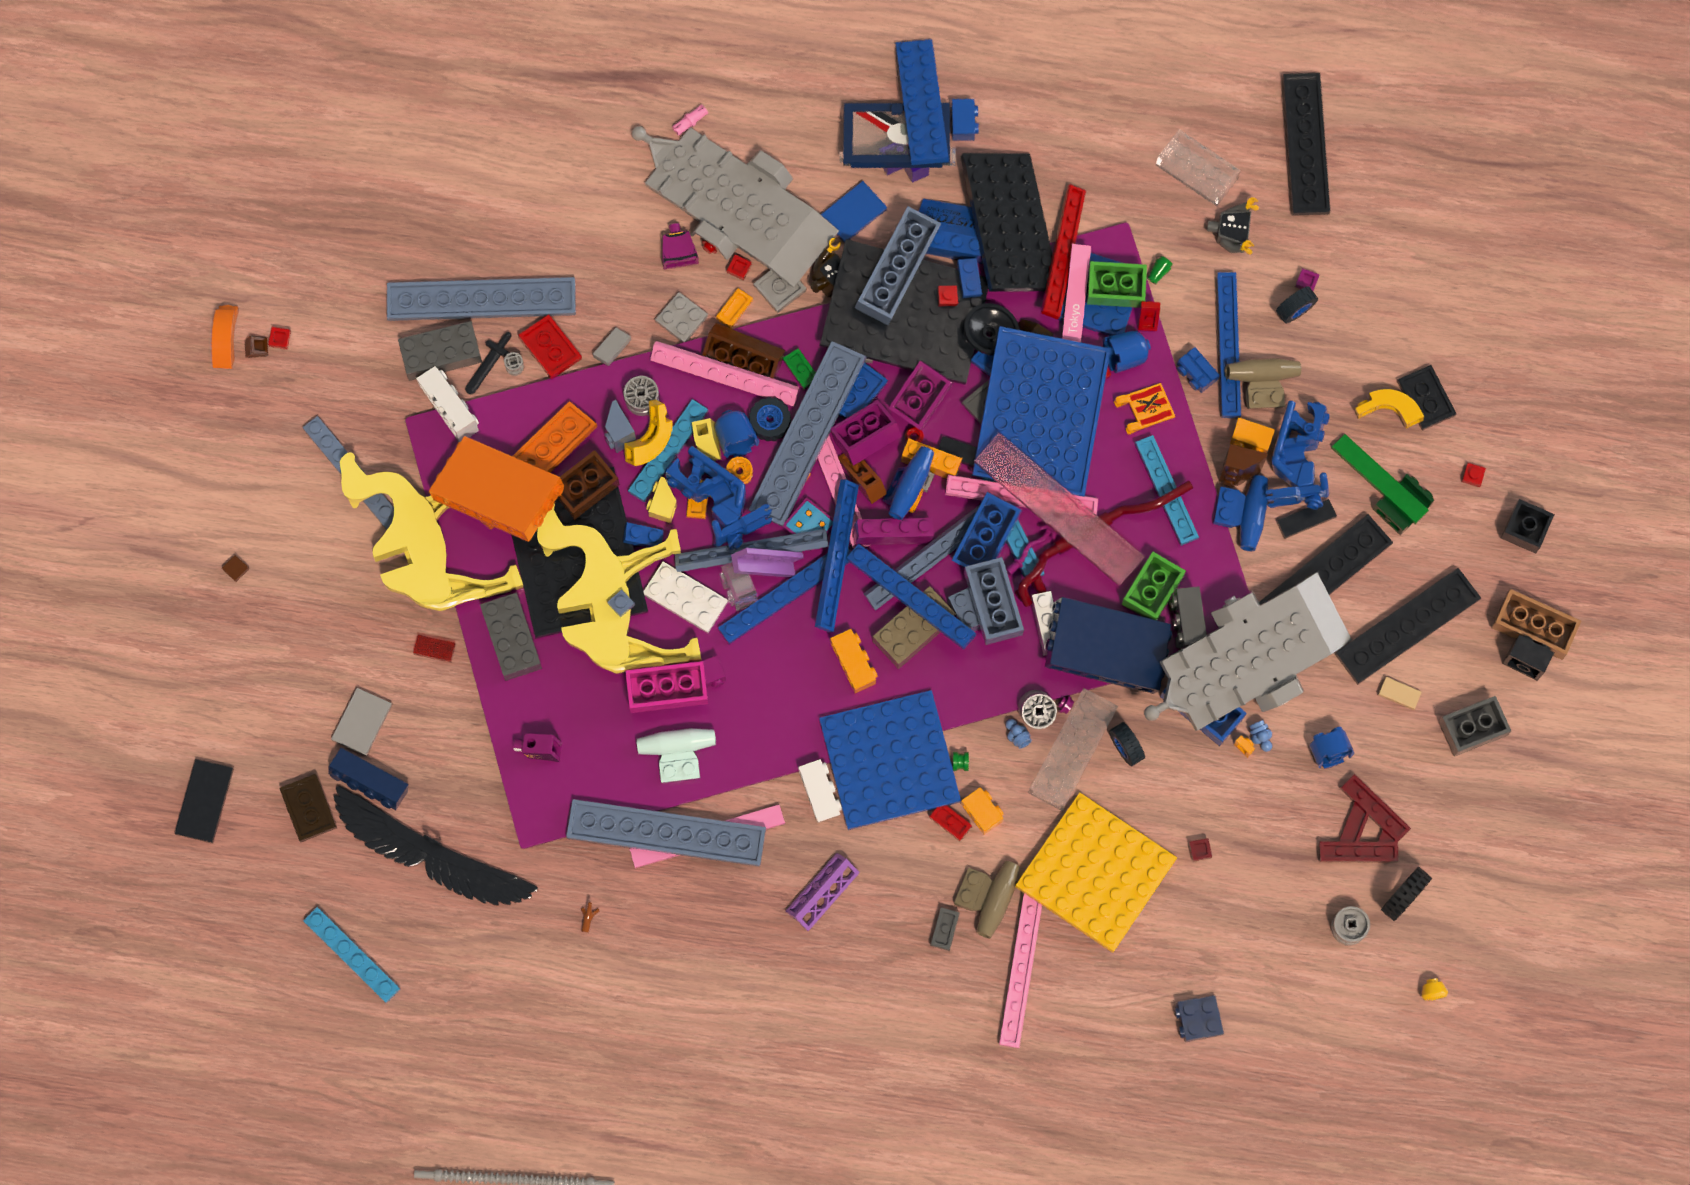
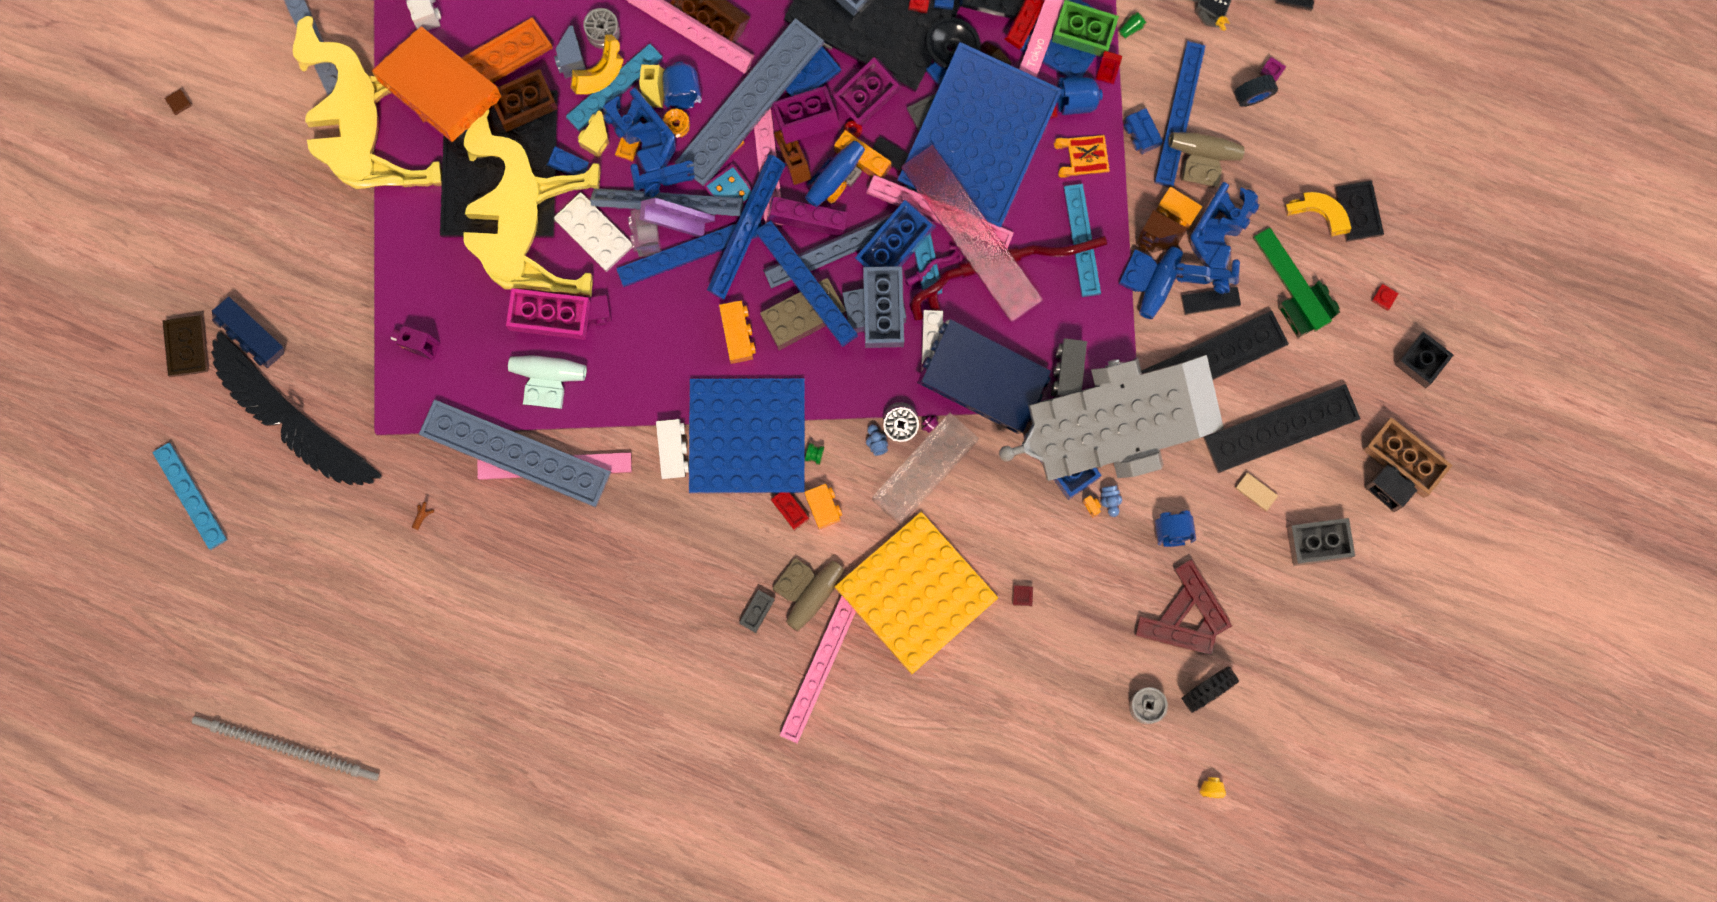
camera: 15 degrees right, 5 degrees up
(204, 801) = (90, 315): black tile -> none
(361, 721) = (257, 276): light grey tile -> none
(434, 648) = (344, 223): clear red plate -> none
(510, 636) = (417, 229): dark grey brick -> none
(621, 603) = (526, 223): sand blue plate -> none
(772, 409) = (723, 71): black wheel -> none
(800, 368) = (760, 37): green plate -> none
(820, 888) = (647, 543): medium lavender fence -> none
(1127, 744) = (978, 476): black wheel -> none
(1153, 587) = (1043, 331): bright green brick -> none
(1198, 1018) = (978, 758): dark blue plate -> none

